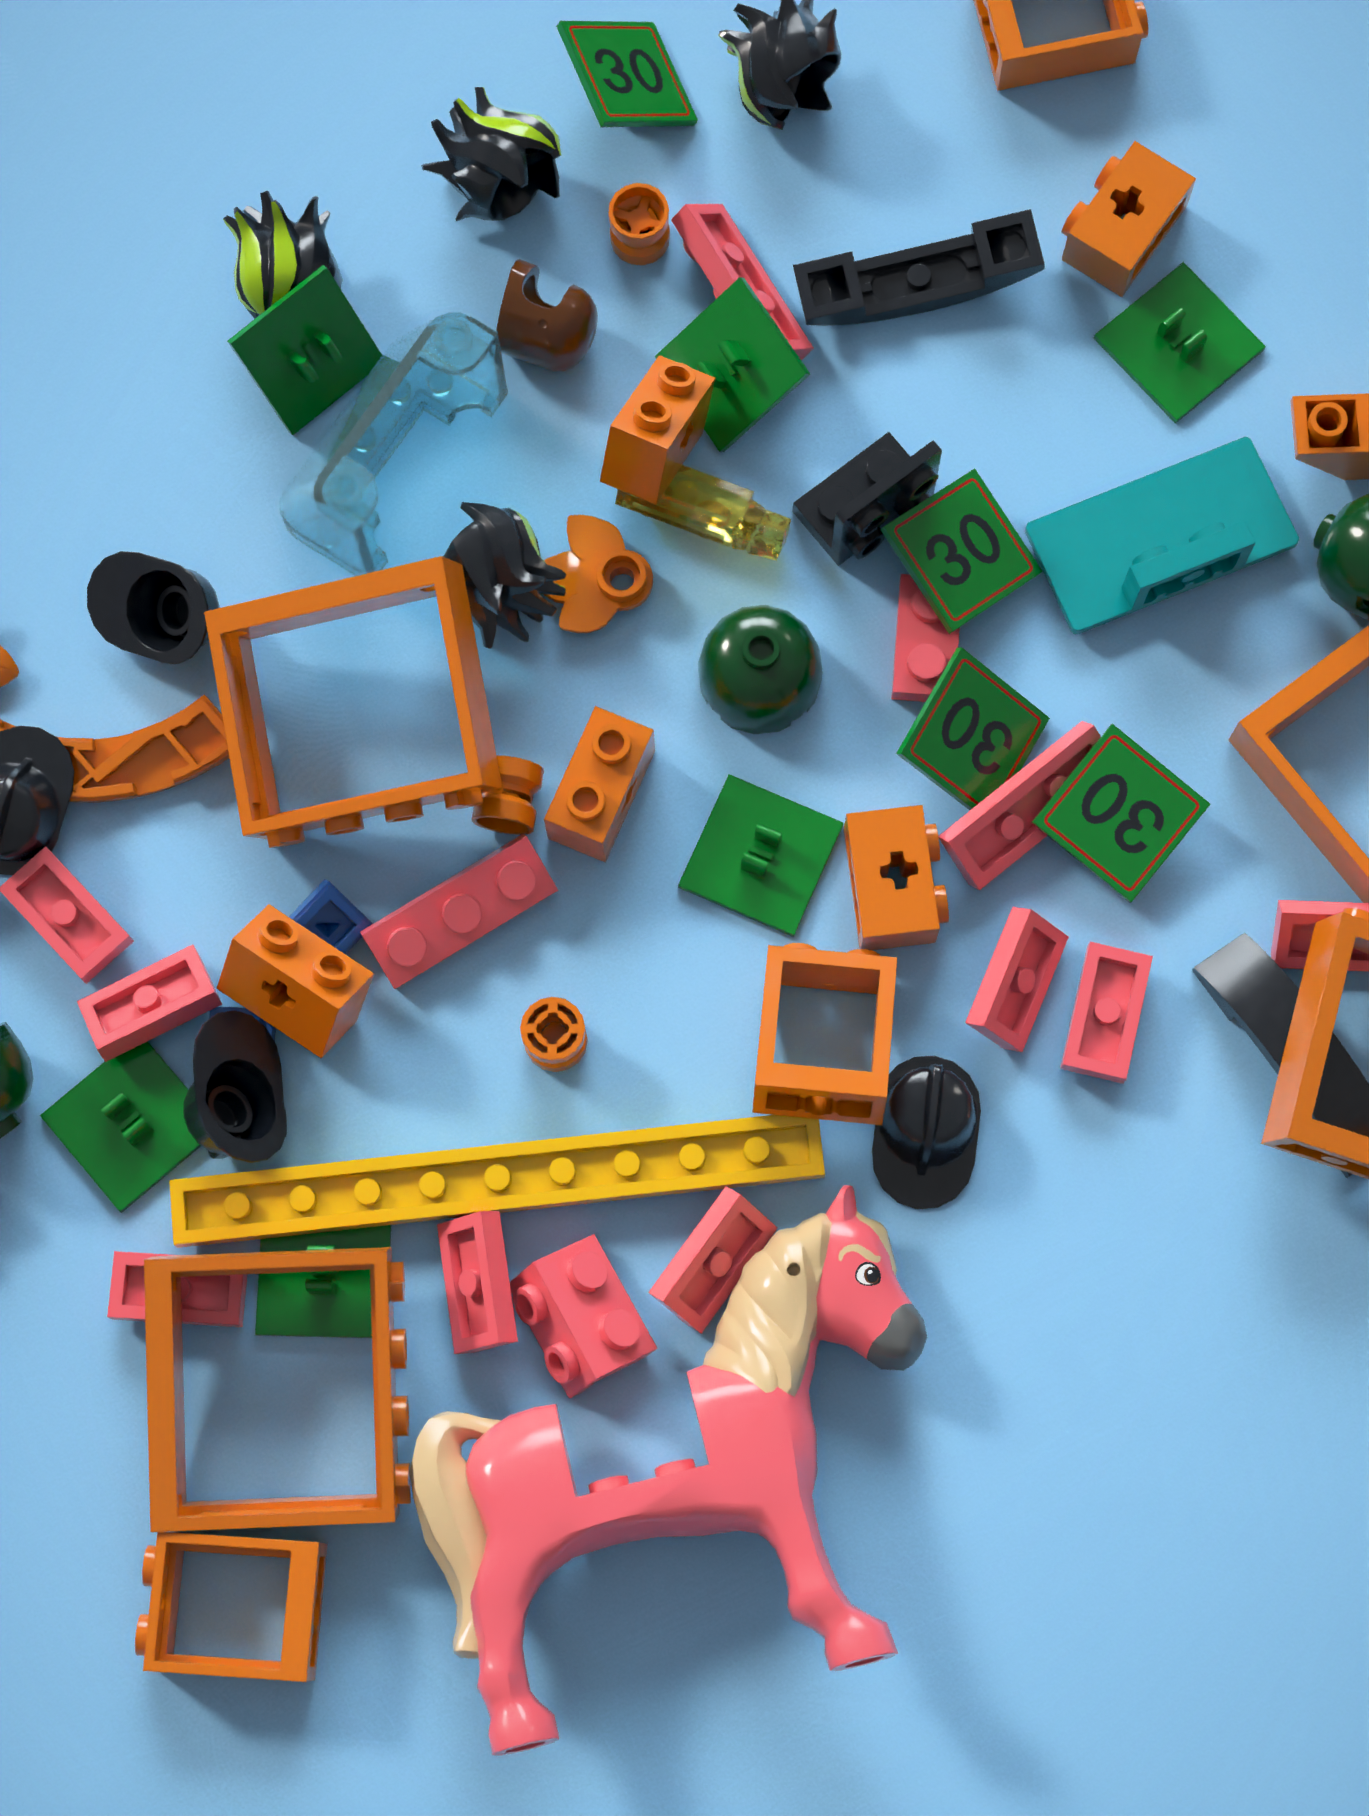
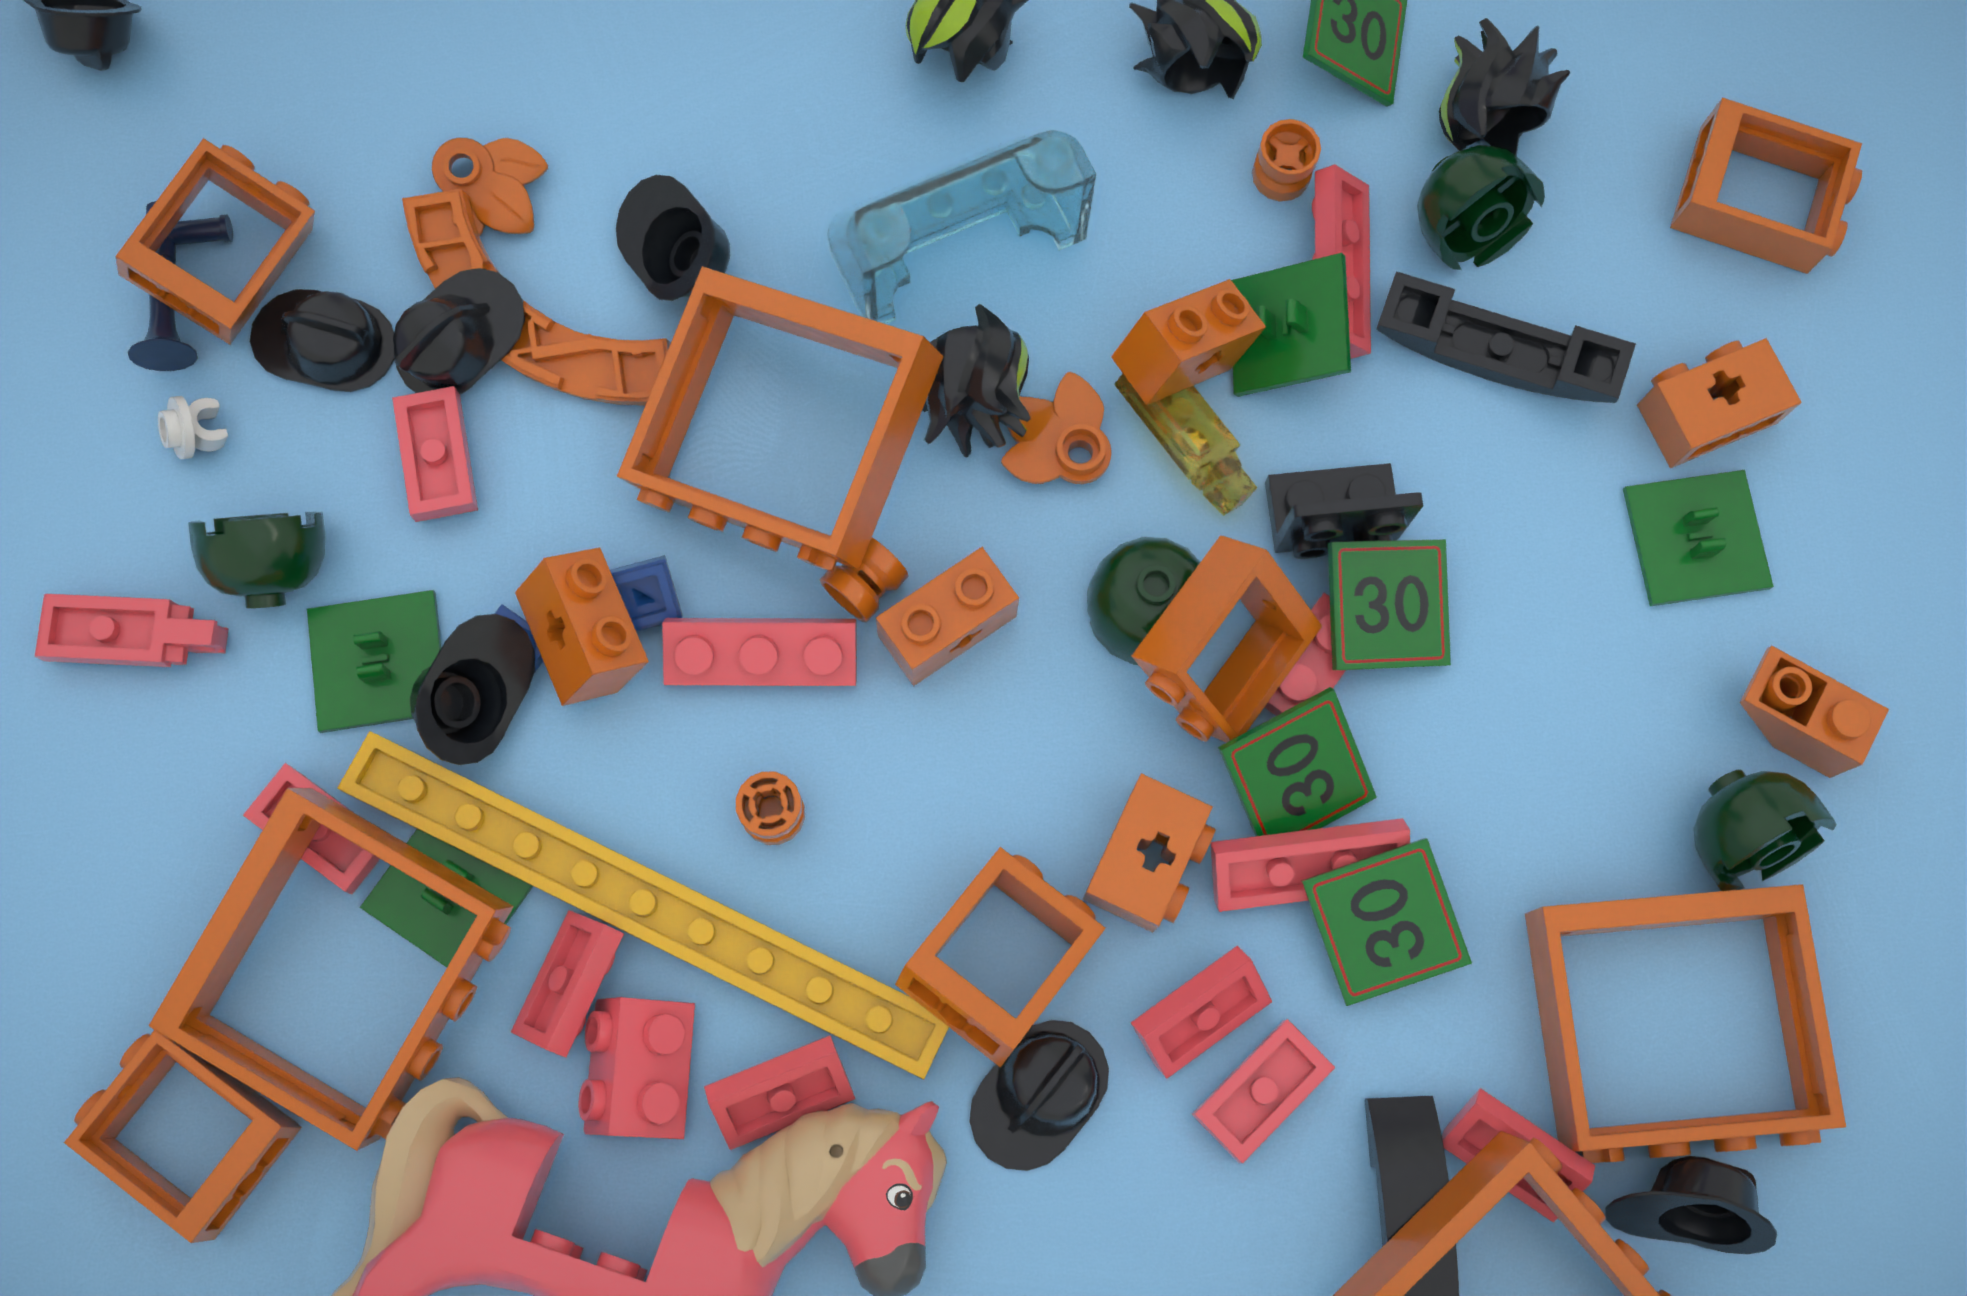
camera: 25 degrees right, 0 degrees up
(149, 1003) = (452, 570): coral plate -> none
(306, 350) = (935, 100): green piece -> none
(540, 332) = (1141, 198): reddish brown helmet -> none
(760, 855) = (1049, 762): green piece -> none
(825, 167) = (1477, 204): none -> dark green cylinder
(884, 666) = (1257, 664): none -> orange window
(1161, 535) = (1577, 697): teal bracket -> none

